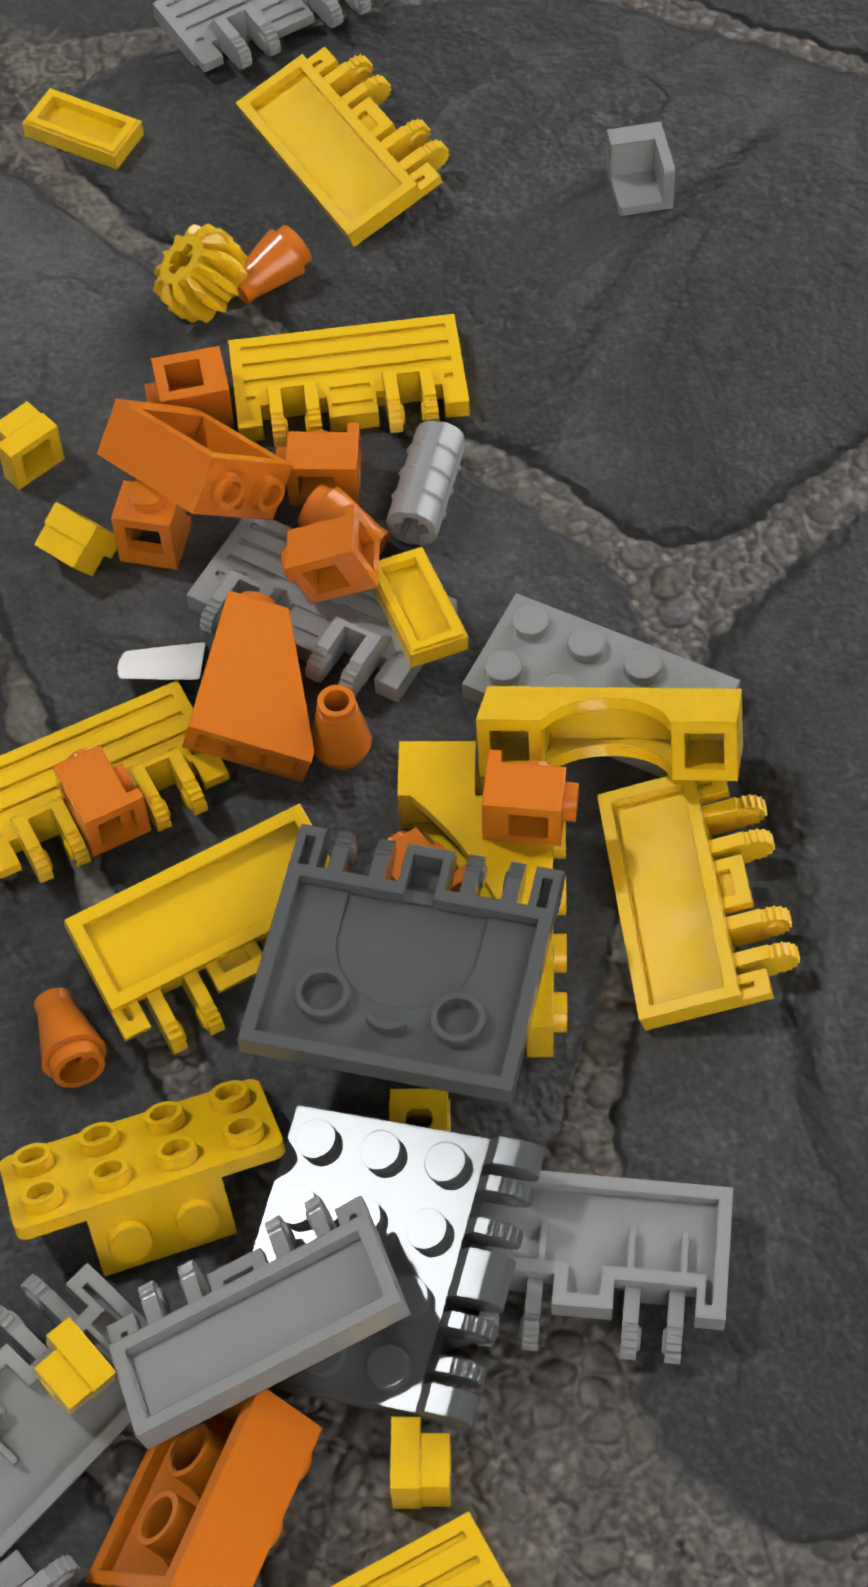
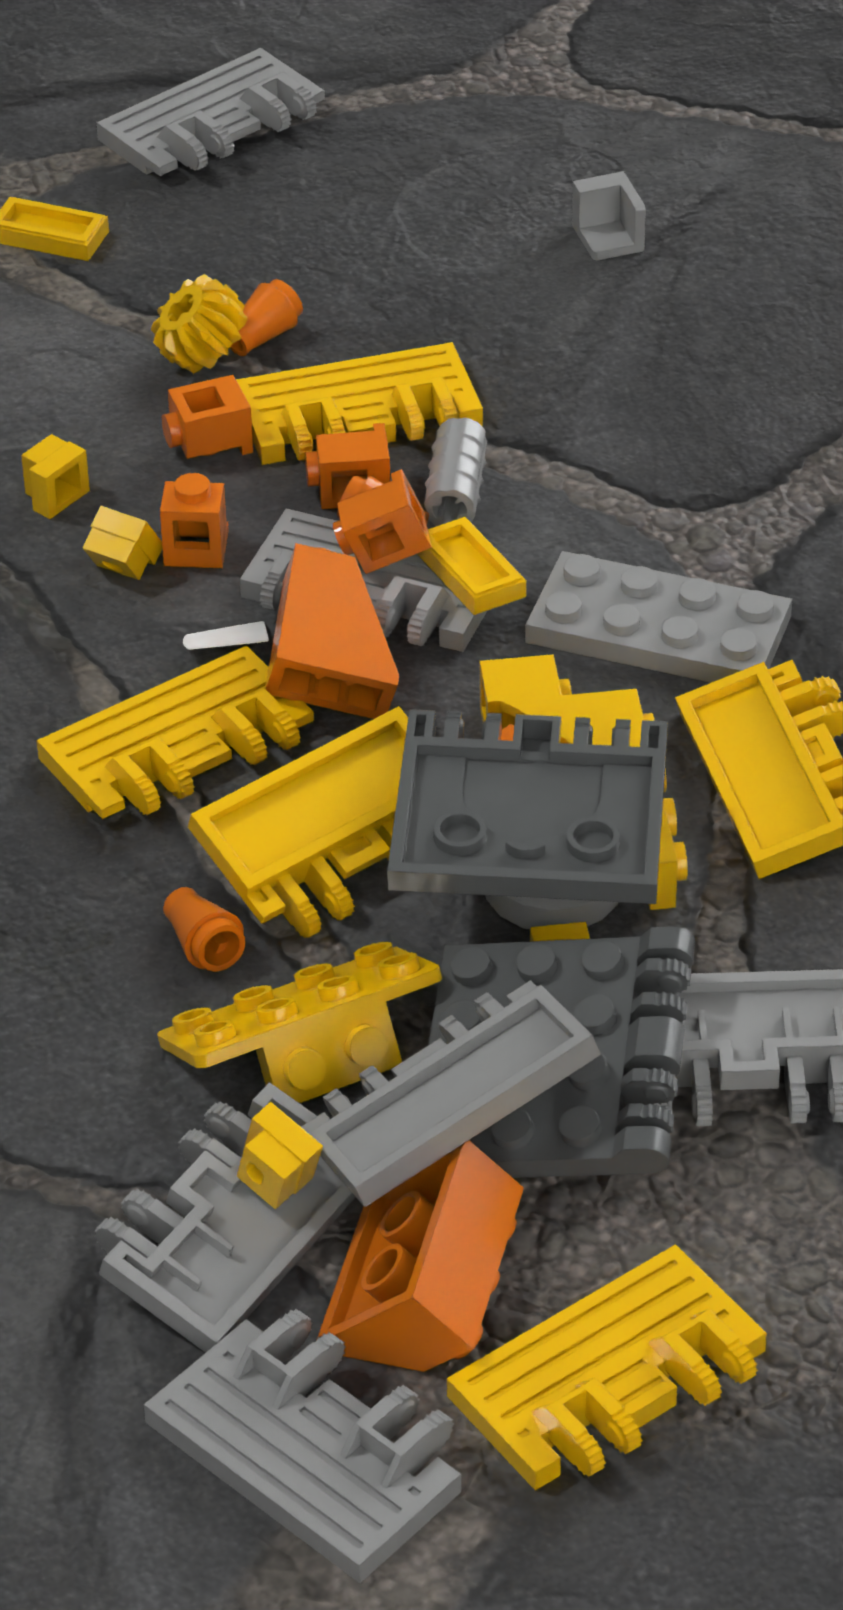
camera: 10 degrees left, 15 degrees down
(101, 800) = (201, 730): orange brick -> none
(194, 460) = (233, 456): orange window -> none
(339, 729) = (418, 663): orange cone -> none
(341, 144) = (310, 217): yellow hinge -> none
(419, 1466) = (621, 1213): yellow piece -> none
(526, 801) = (617, 683): orange brick -> none
(678, 729) = (640, 633): yellow arch -> none

